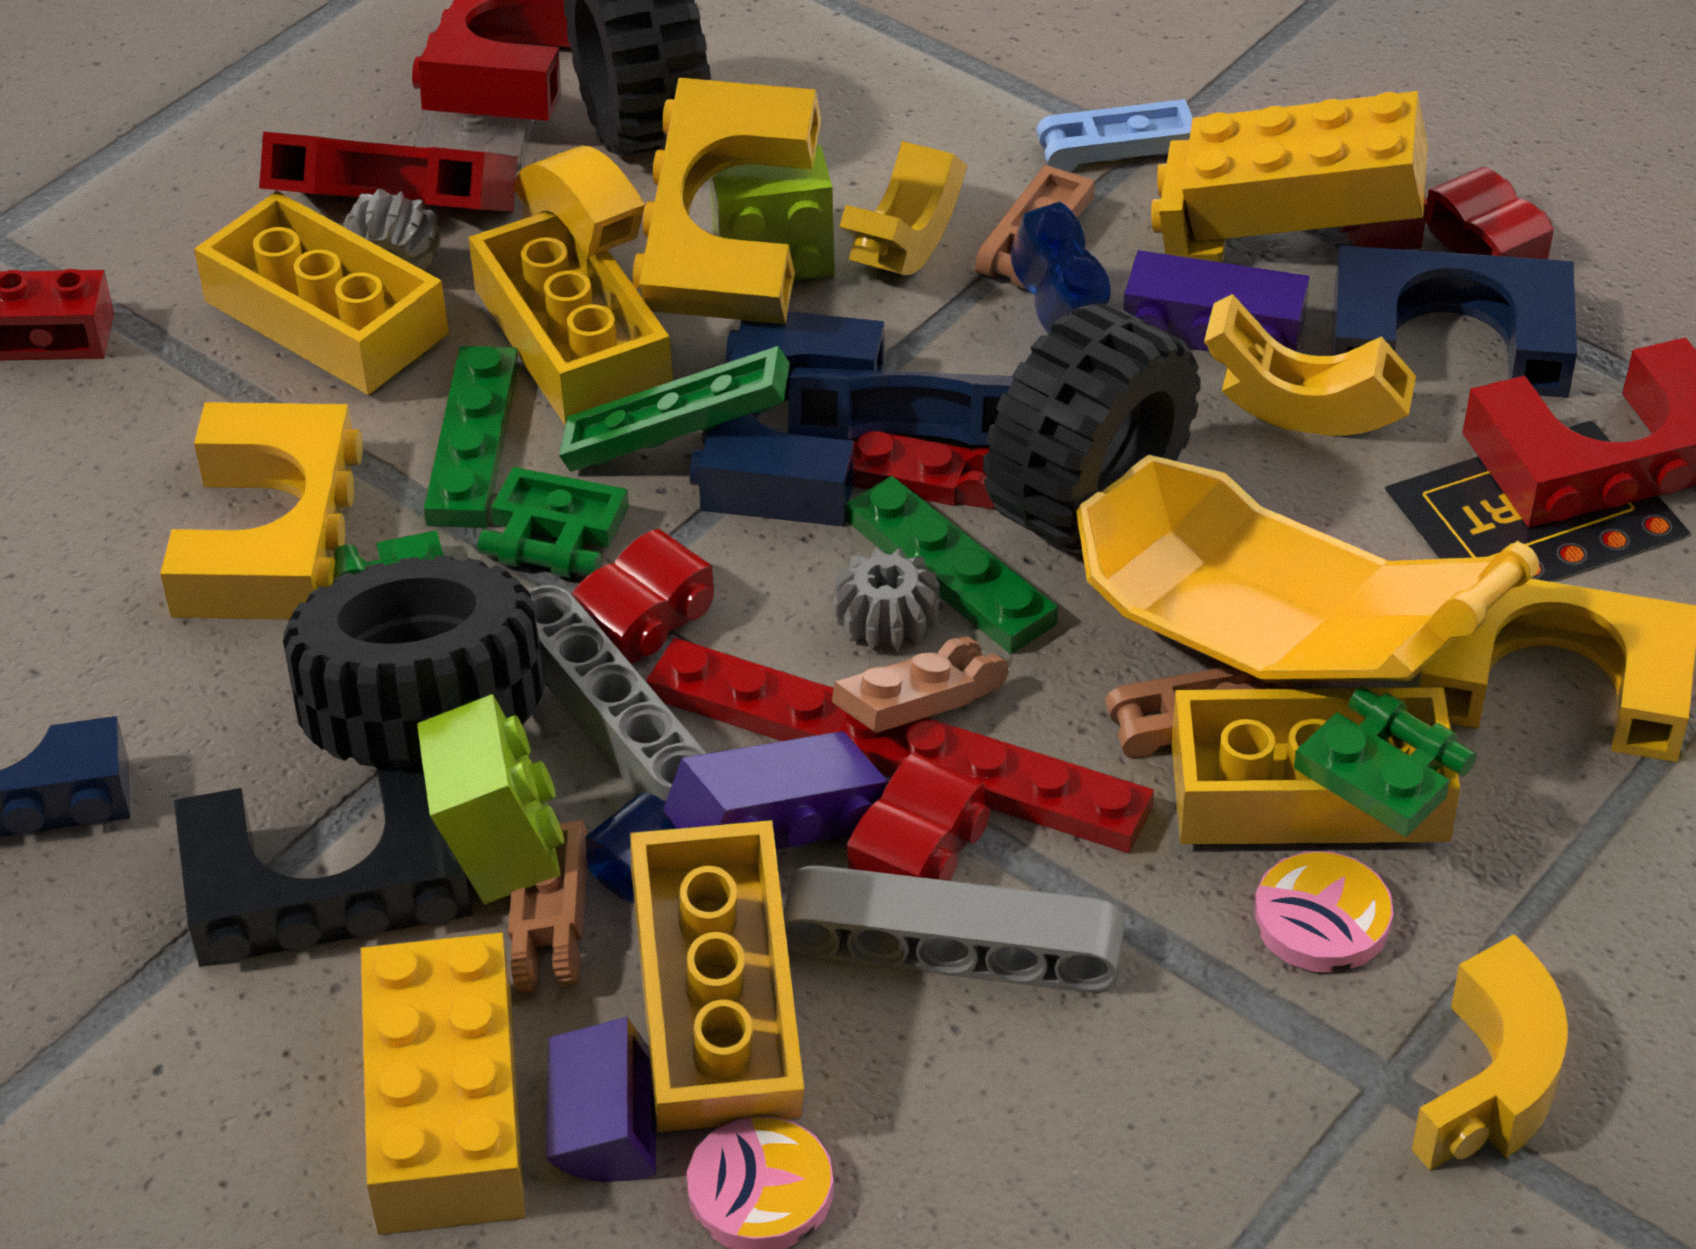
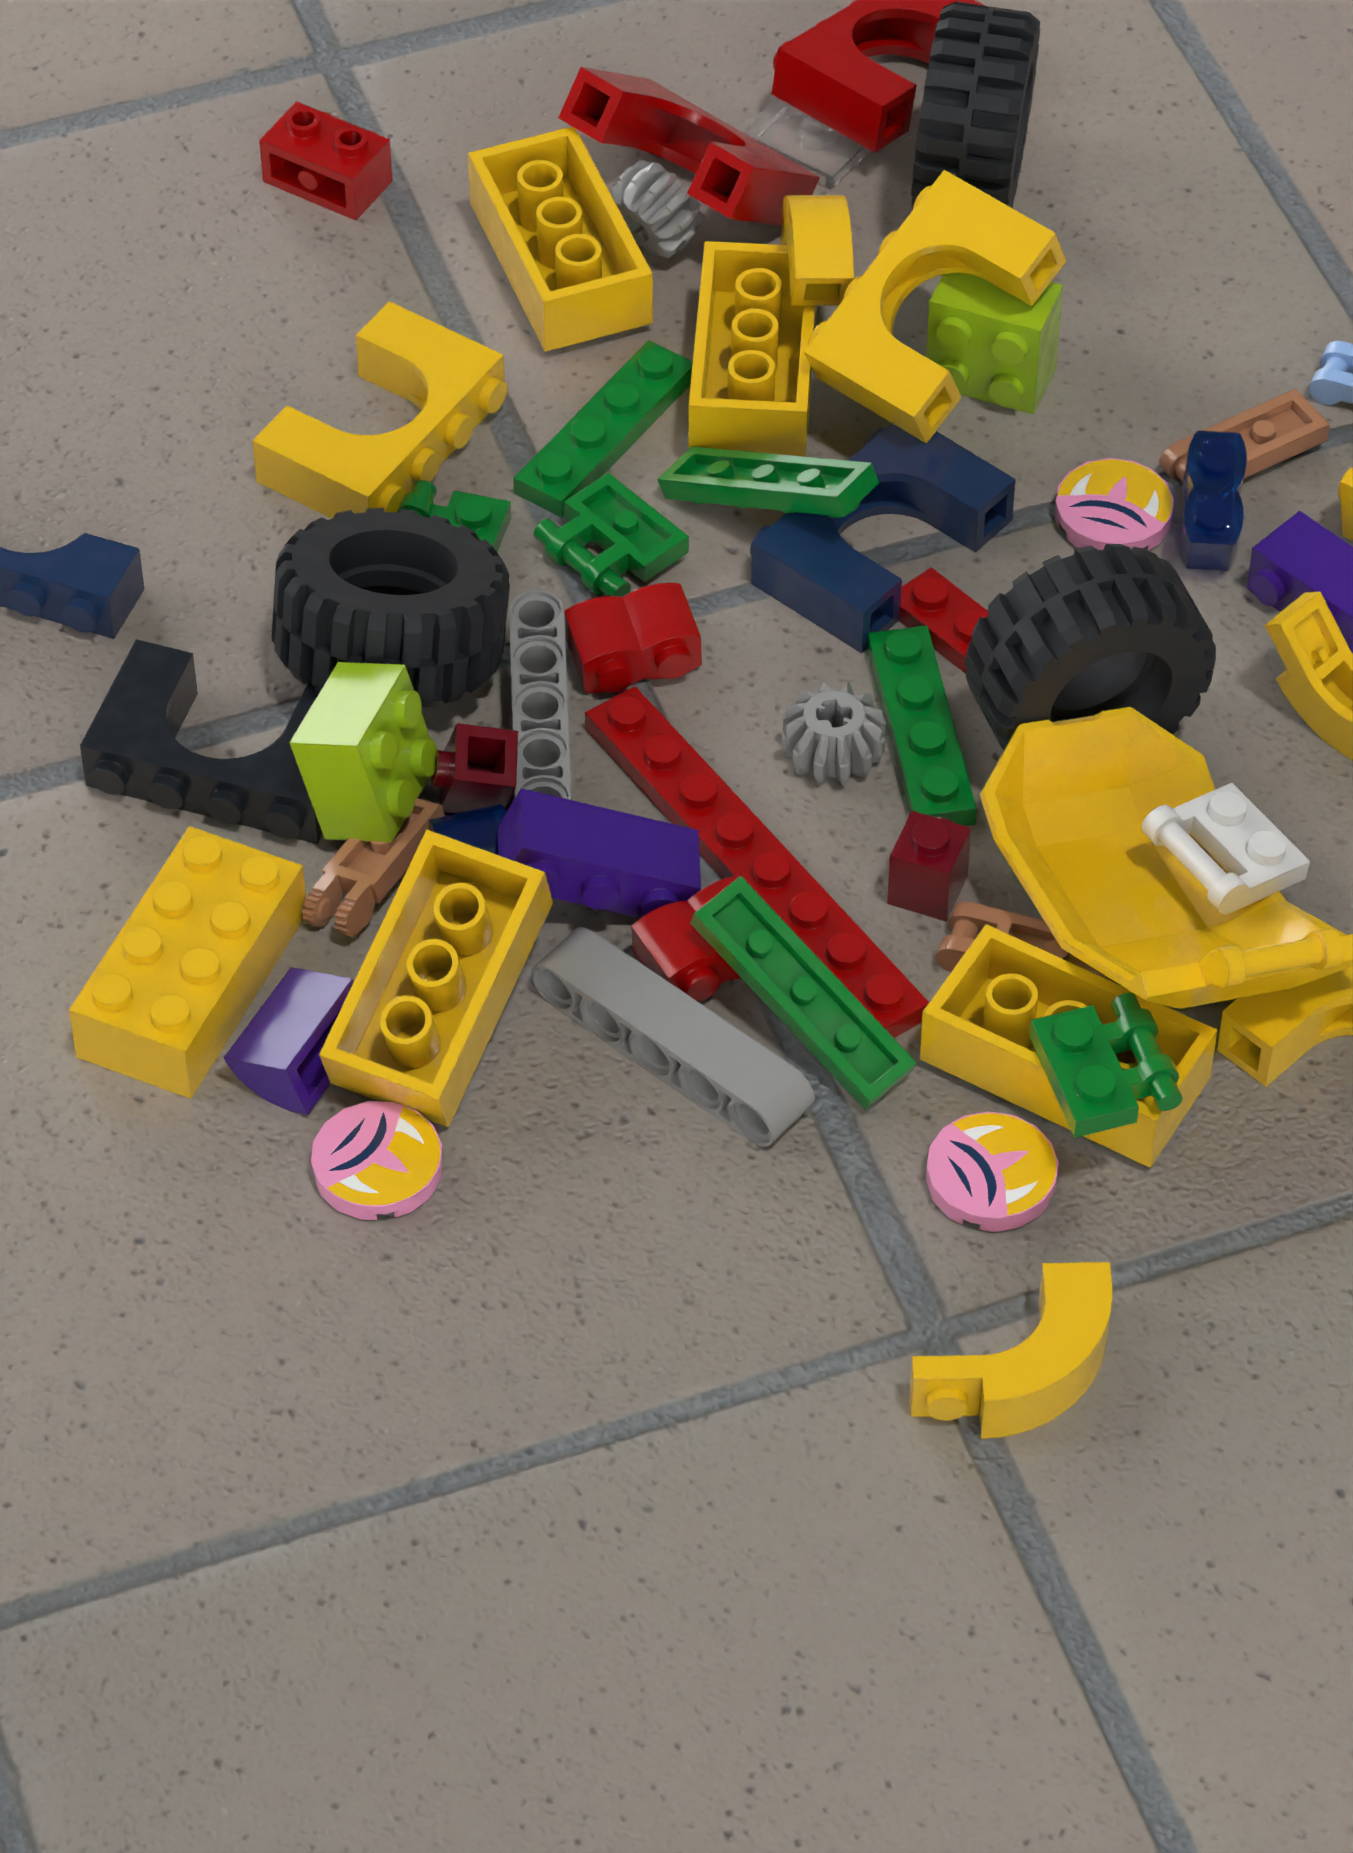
camera: 30 degrees right, 5 degrees up
(597, 770) = (476, 768): none -> dark red brick
(893, 402) = (939, 542): dark blue arch -> none
(911, 213) = (1129, 389): yellow arch -> none
(921, 685) = (800, 822): nougat hinge -> none
(966, 318) = (1114, 505): none -> tile
(1052, 829) = (803, 992): none -> green plate
(1063, 671) = (929, 865): none -> dark red brick
(1311, 536) = (1237, 837): none -> white plate

